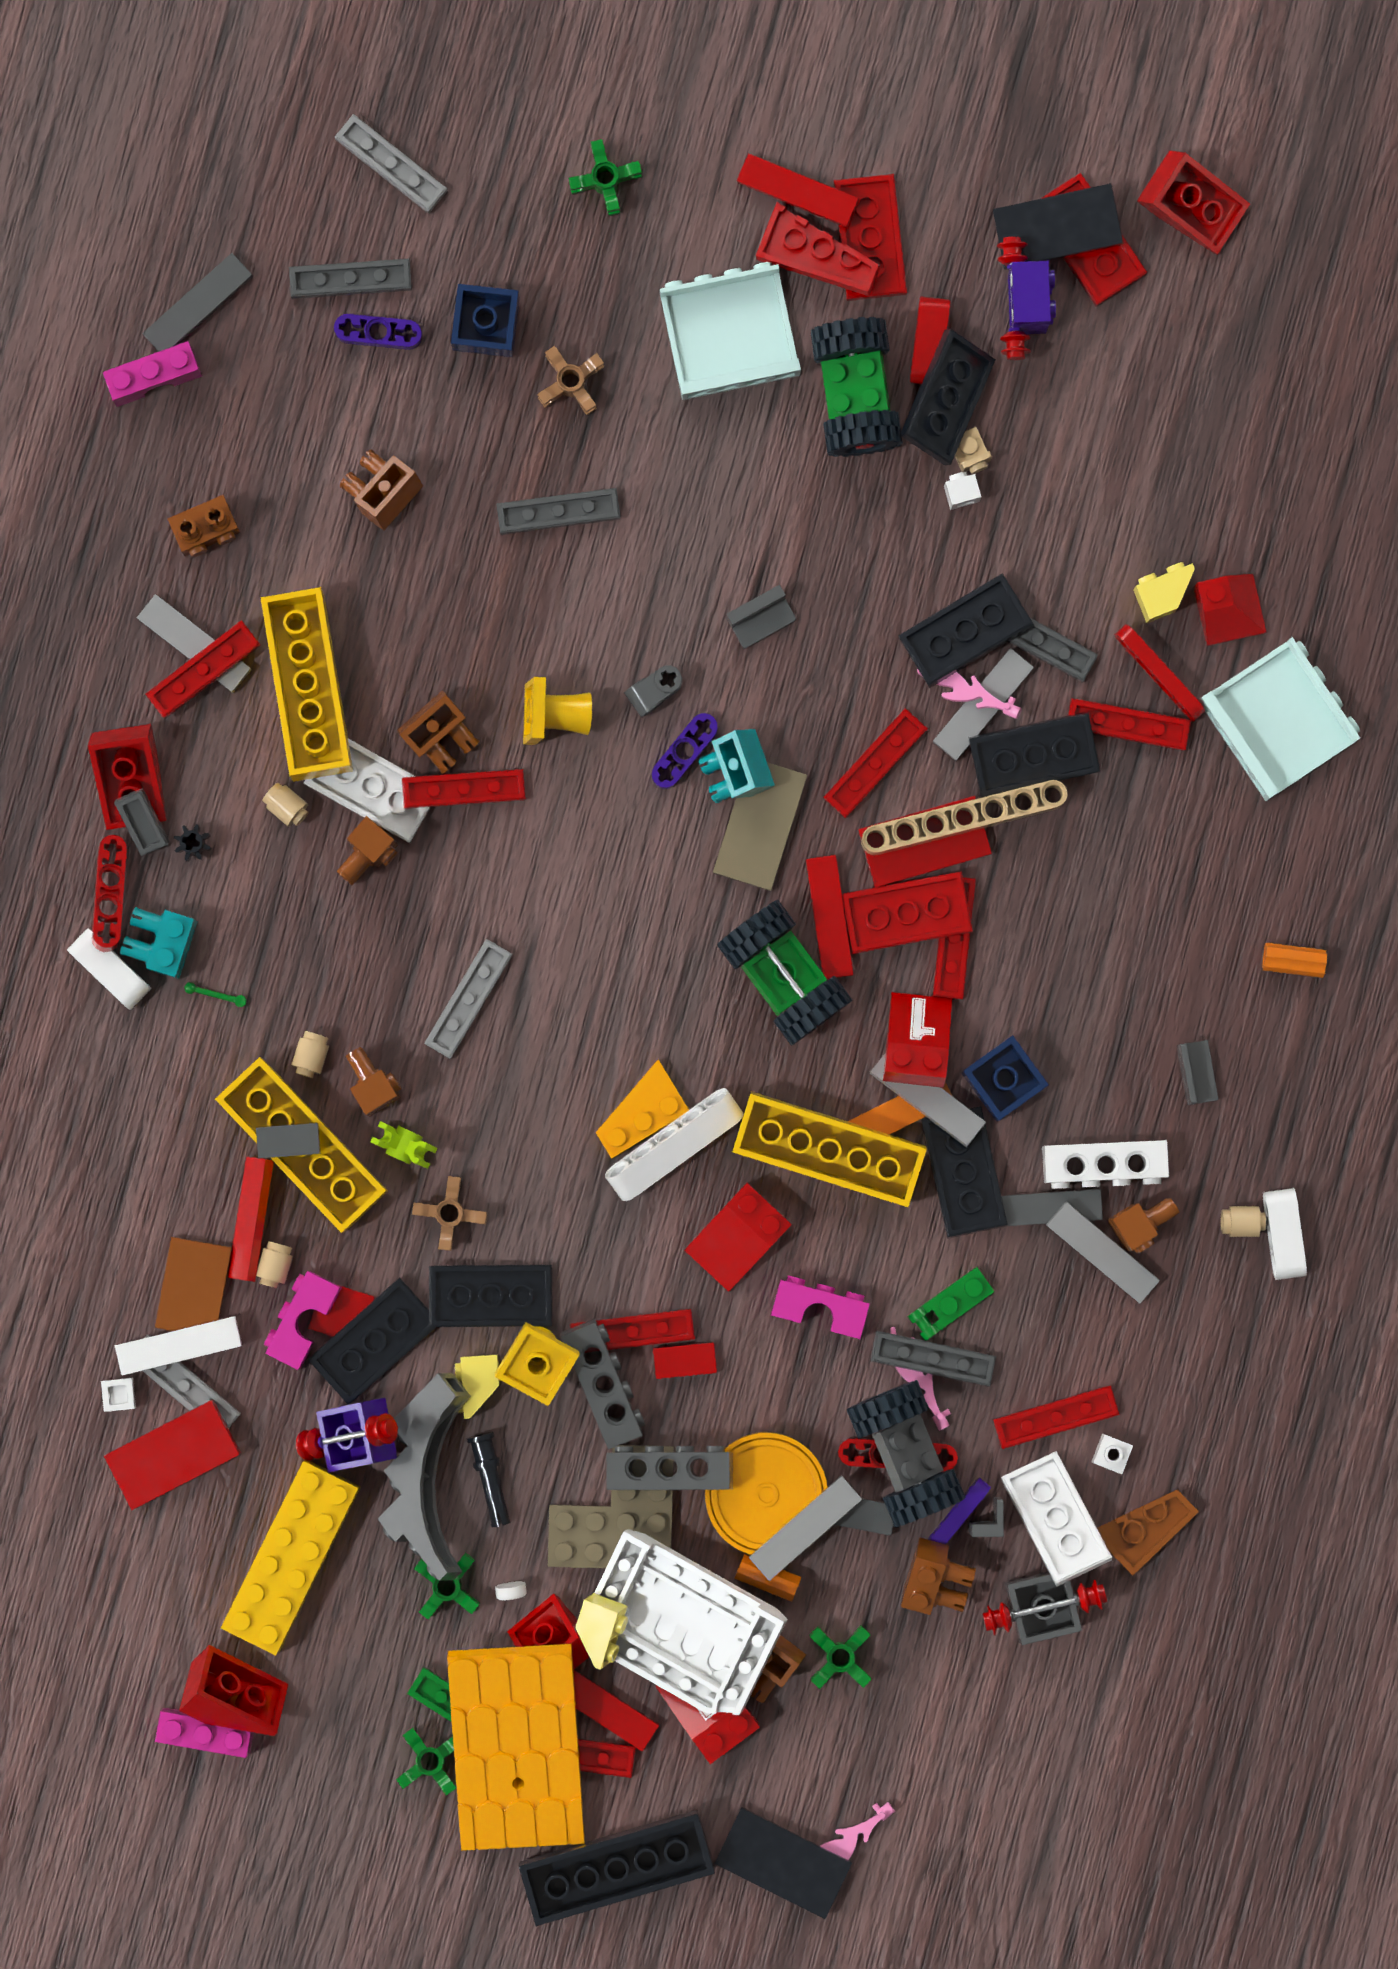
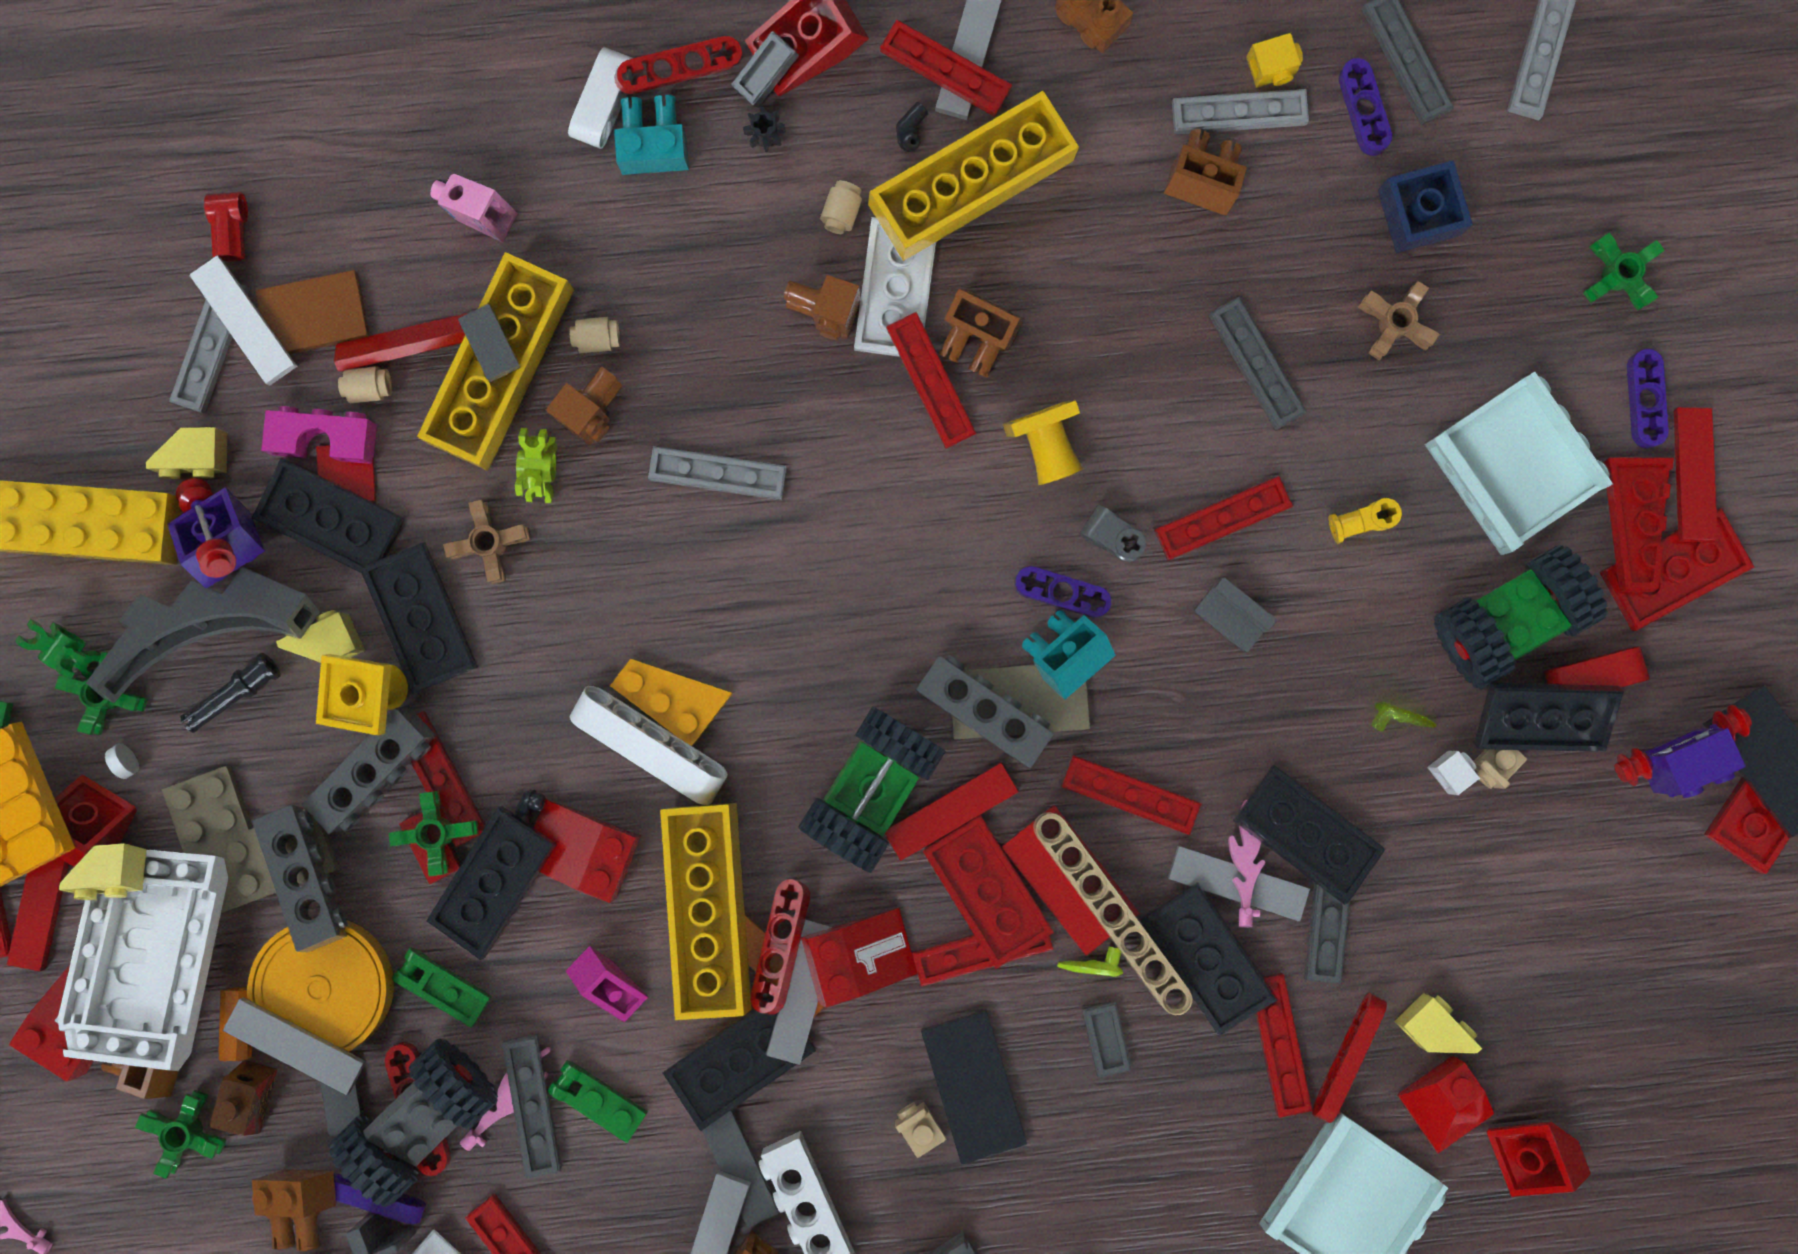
camera: 70 degrees right, 0 degrees up
(81, 1327) = (226, 215): none -> red piece
(118, 1394) = (172, 281): white plate -> none
(166, 1105) = (474, 206): none -> bright pink torso
(172, 1454) = (131, 360): red tile -> none
(238, 722) = (907, 127): none -> black arm
(239, 1000) = (623, 243): green hinge -> none
(272, 1433) = (191, 451): none -> light yellow slope
(309, 391) = (1274, 60): none -> yellow brick
(338, 437) = (1240, 111): none -> light grey tile
(399, 1600) = (59, 649): none -> green pin
(672, 1363) = (436, 851): none -> green pin
(676, 592) = (1223, 518): none -> red tile
(686, 1271) = (529, 801): none -> black arm
(695, 201) = (1658, 388): none -> dark purple beam
(723, 888) = (1023, 749): none -> dark grey brick
(725, 478) = (1365, 519): none -> yellow connector
(735, 1319) = (491, 882): none -> black tile
(806, 1395) = (442, 988): none -> green plate
(833, 1591) = (244, 1103): none -> reddish brown torso
(847, 1312) = (539, 936): dark pink arch -> none
(857, 1257) = (605, 984): none -> dark pink slope
(885, 1095) = (775, 945): none -> red beam
(891, 523) = (1389, 711): none -> clear neon green bar
(1004, 1078) = (854, 1066): dark blue brick -> none
(1009, 840) = (1107, 968): none -> lime bar
(1062, 989) = (973, 1087): none -> black tile
(1066, 864) = (1106, 1039): none -> dark grey tile
(1078, 1047) = (919, 1128): none -> tan bracket
(1299, 553) = (1538, 1159): none -> red slope

